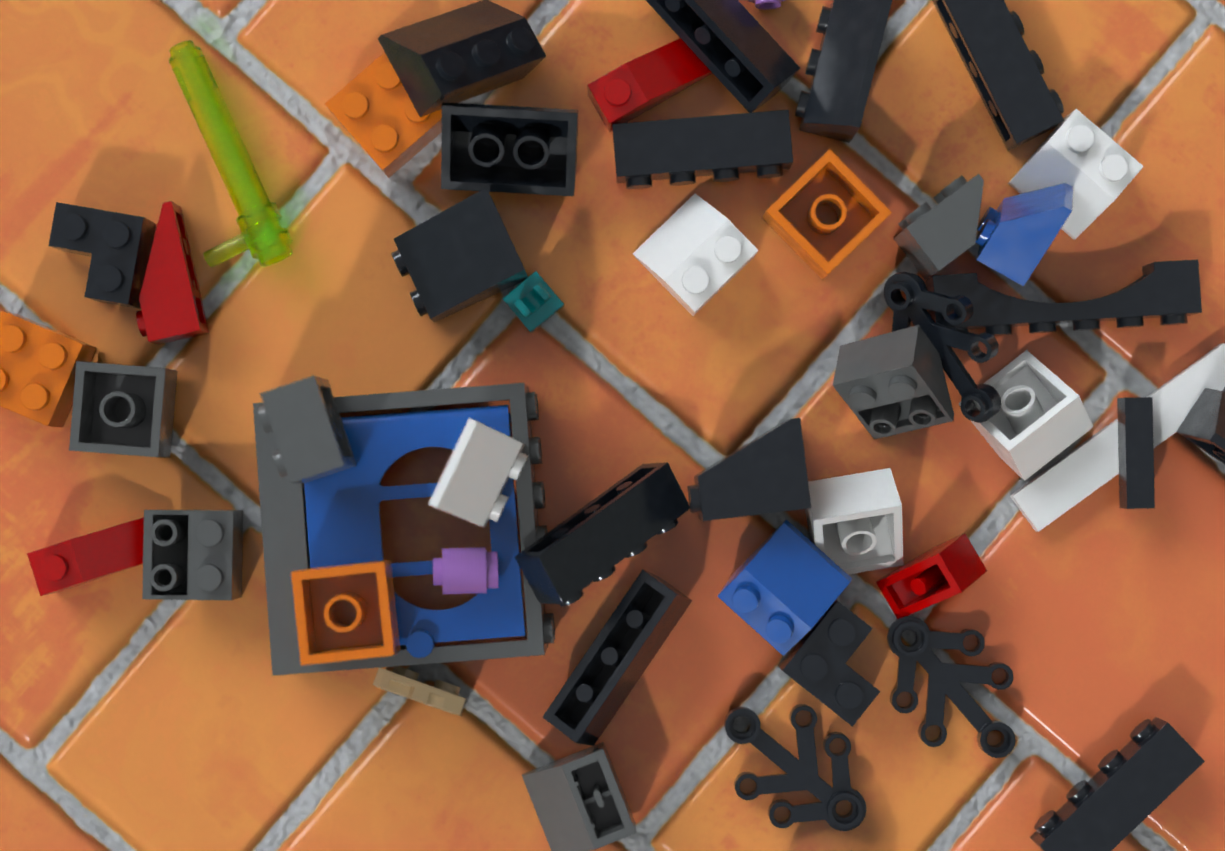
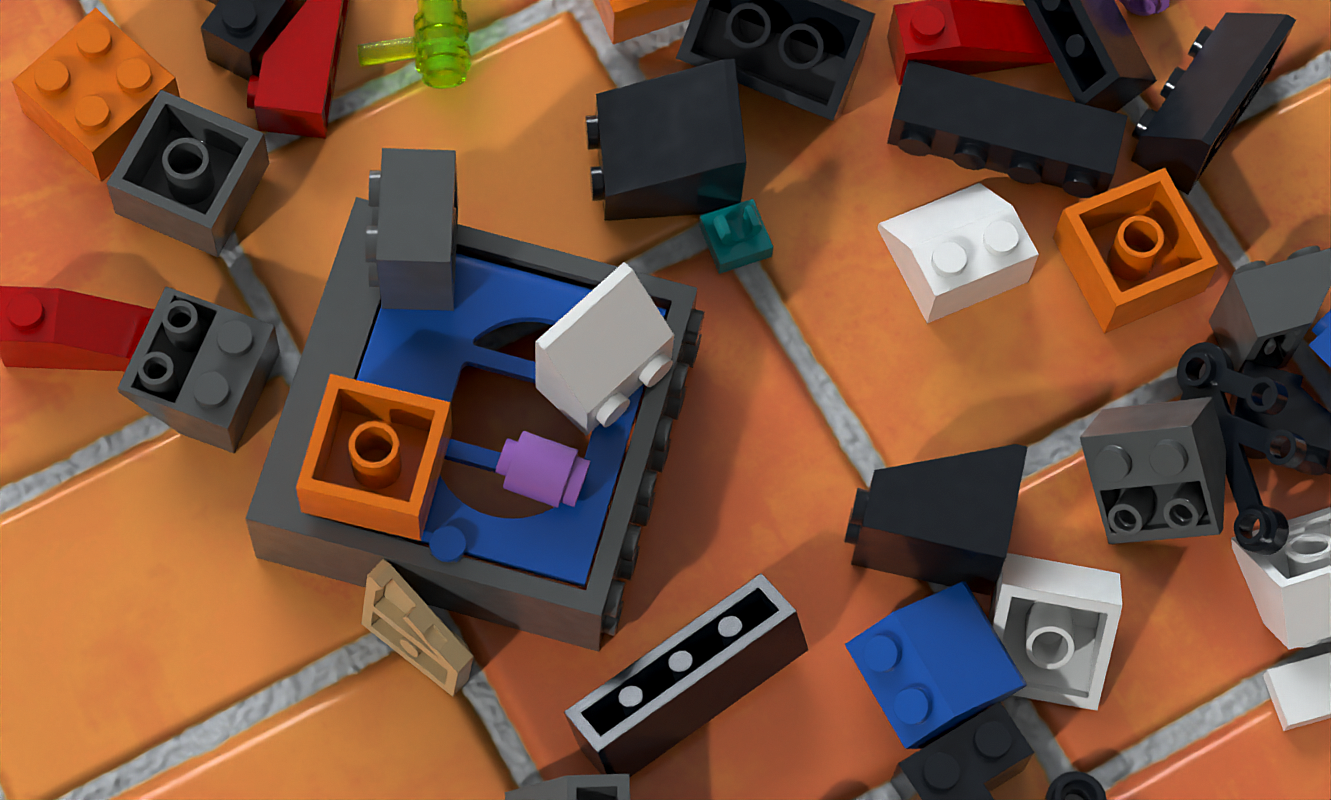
camera: 10 degrees right, 20 degrees down
(603, 534) = (728, 505): black brick -> none
(932, 576) = (1131, 729): red slope -> none

